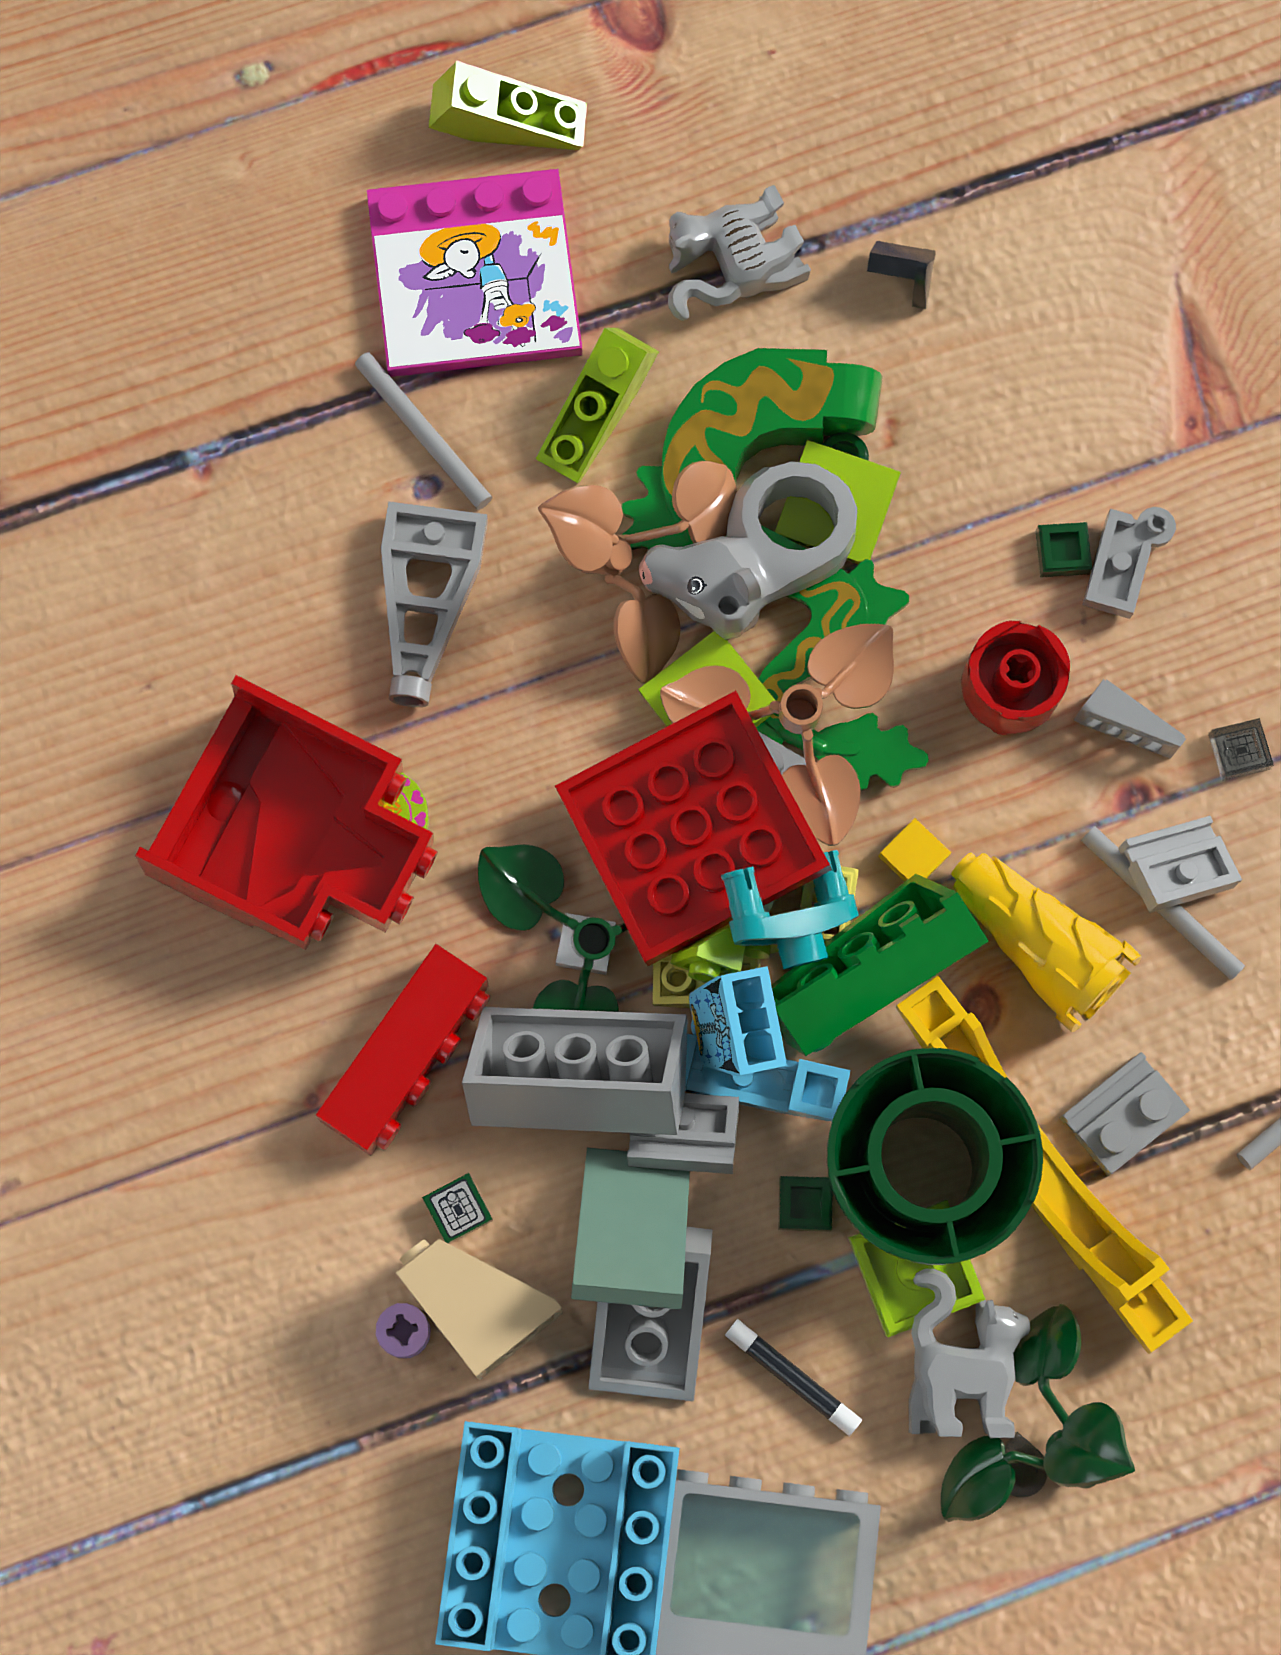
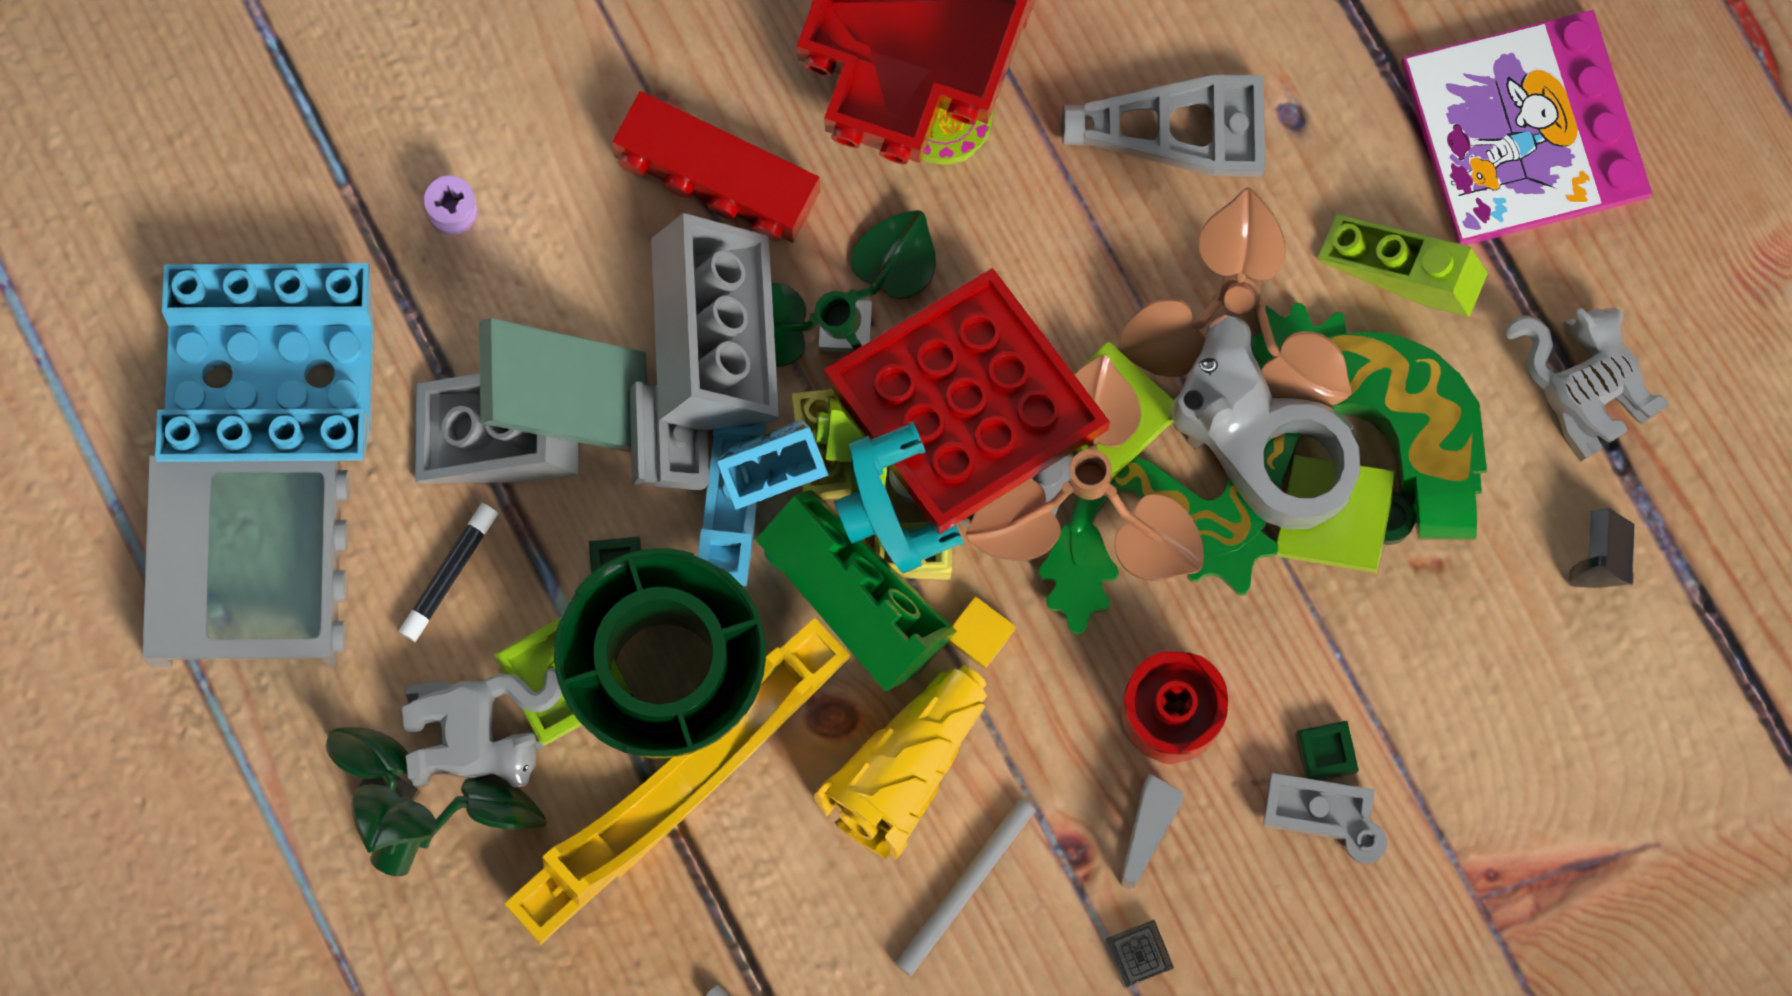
camera: 85 degrees right, 0 degrees up
(423, 430) = (1347, 102): light grey bar -> none
(457, 1208) = (572, 240): tile -> none
(474, 1304) = (476, 254): tan slope -> none
(504, 110) = (1704, 134): lime slope -> none
(1124, 1114) = (743, 867): light grey plate -> none
(1179, 864) = (1004, 895): light grey plate -> none

